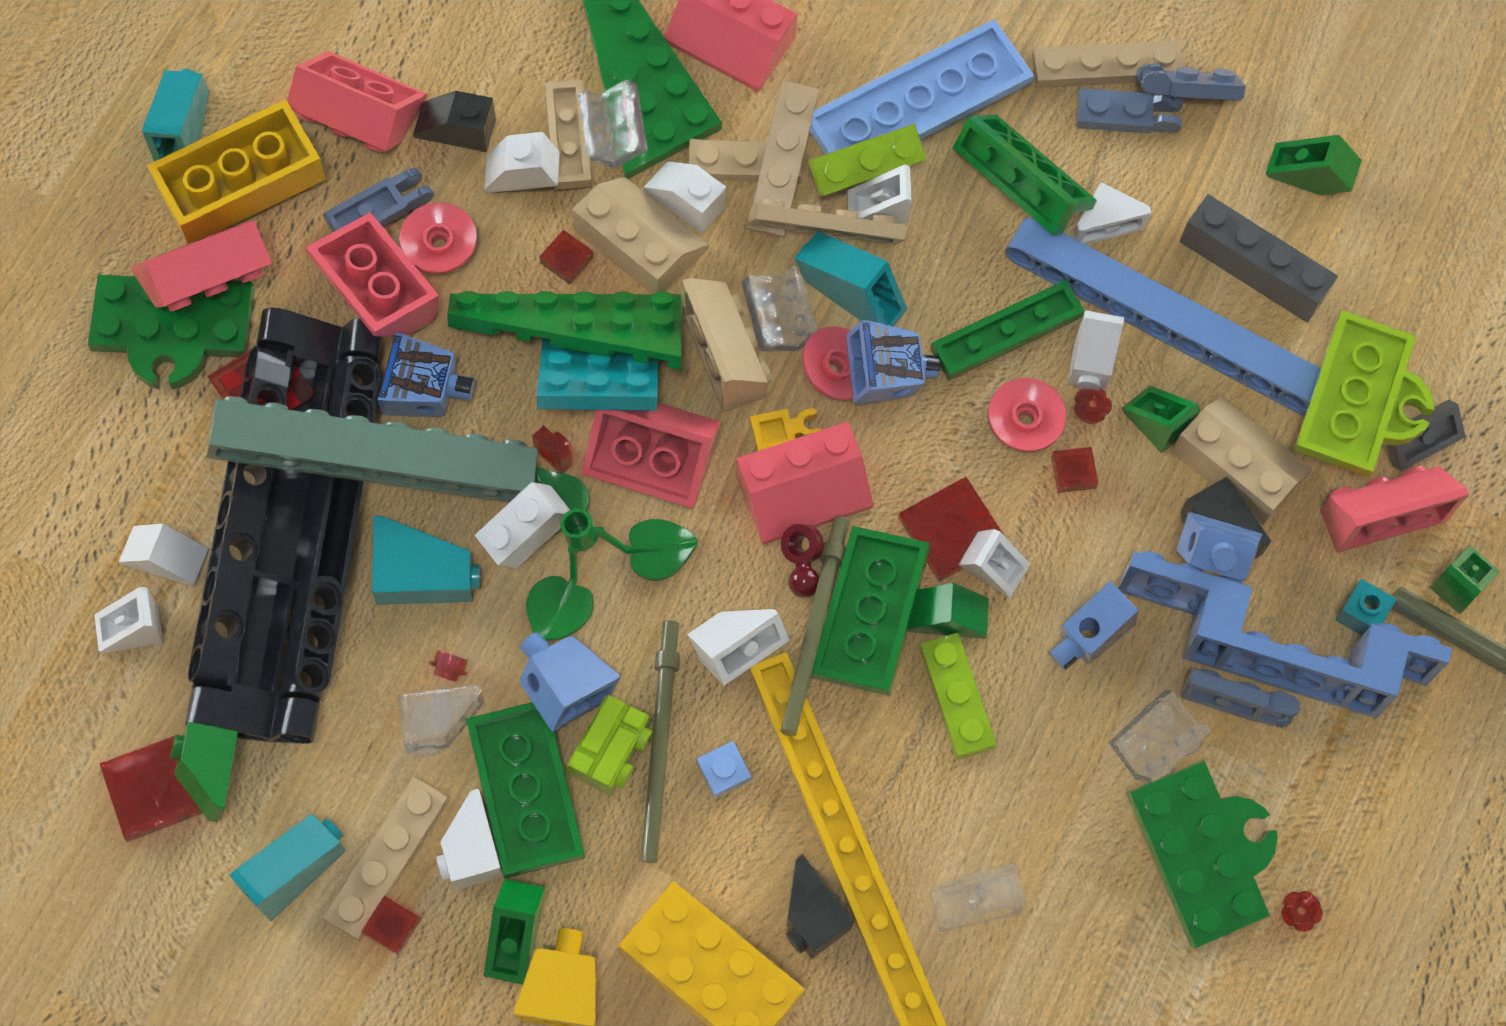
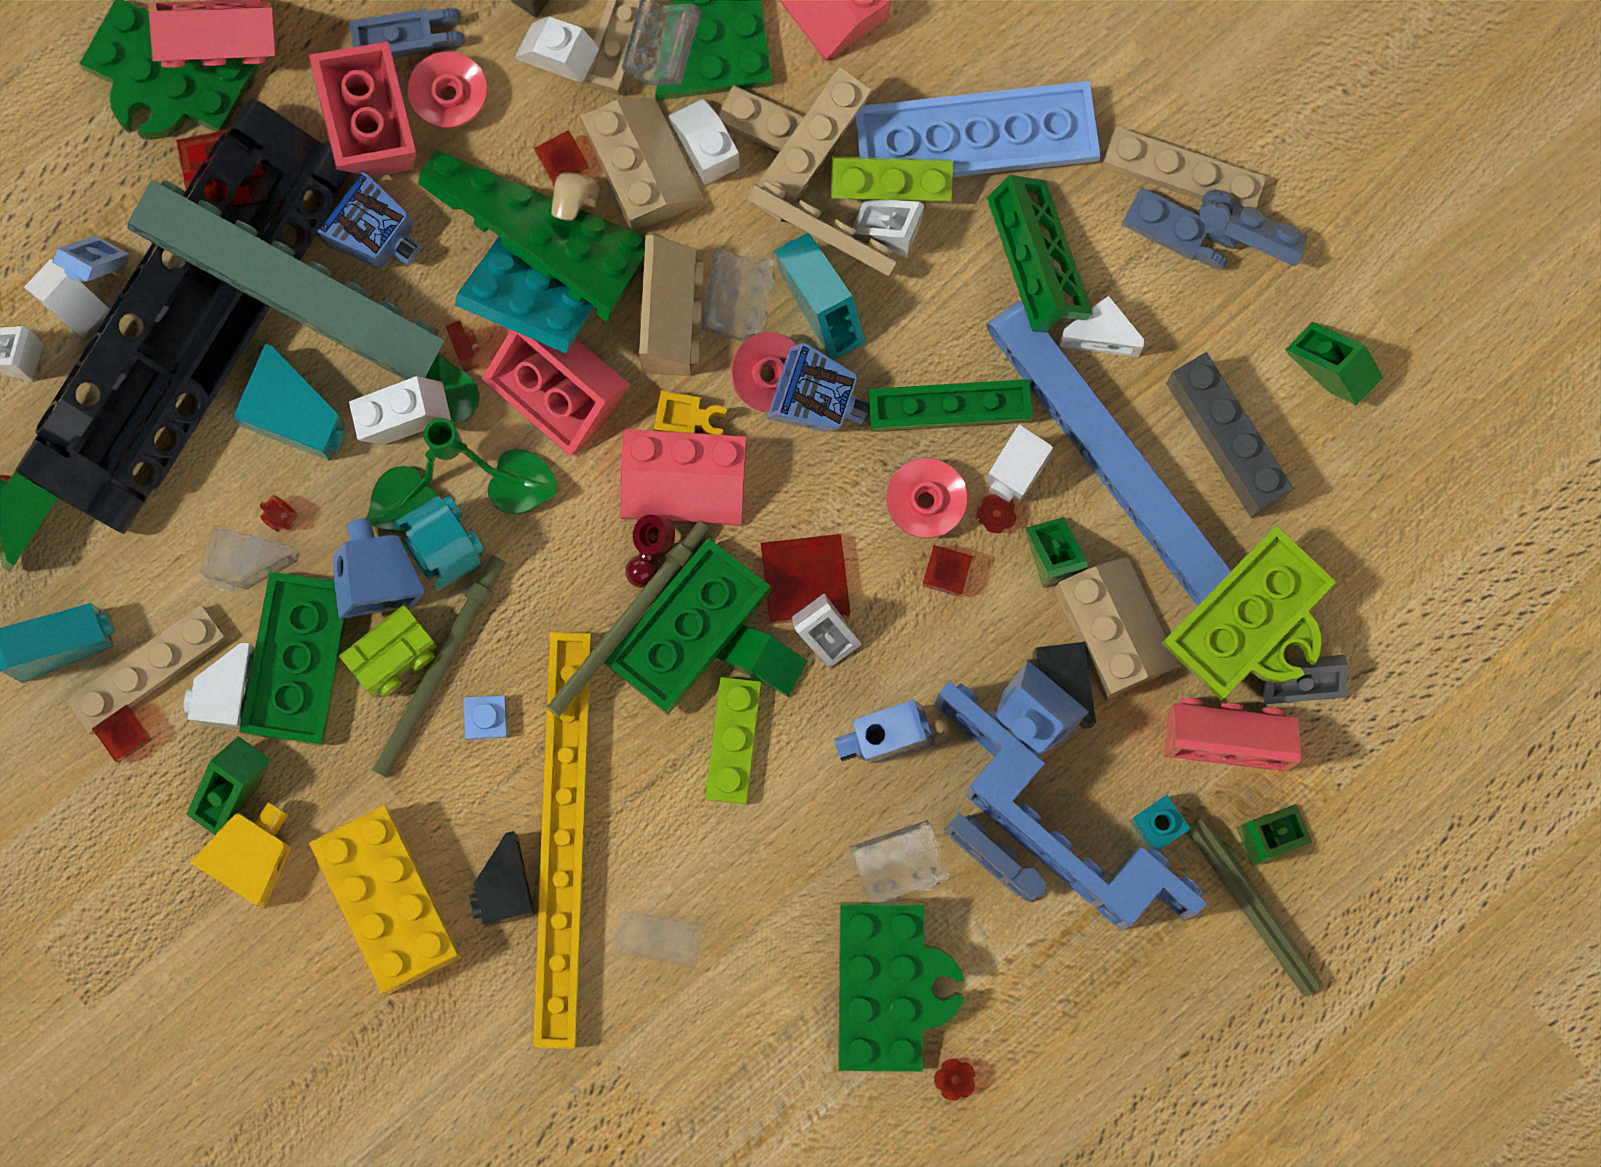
camera: 25 degrees right, 10 degrees up
(175, 506) = (90, 258): none -> light blue plate
(593, 280) = (570, 193): none -> tan hair
(614, 624) = (440, 541): none -> teal brick
(737, 641) = (547, 605): white slope -> none

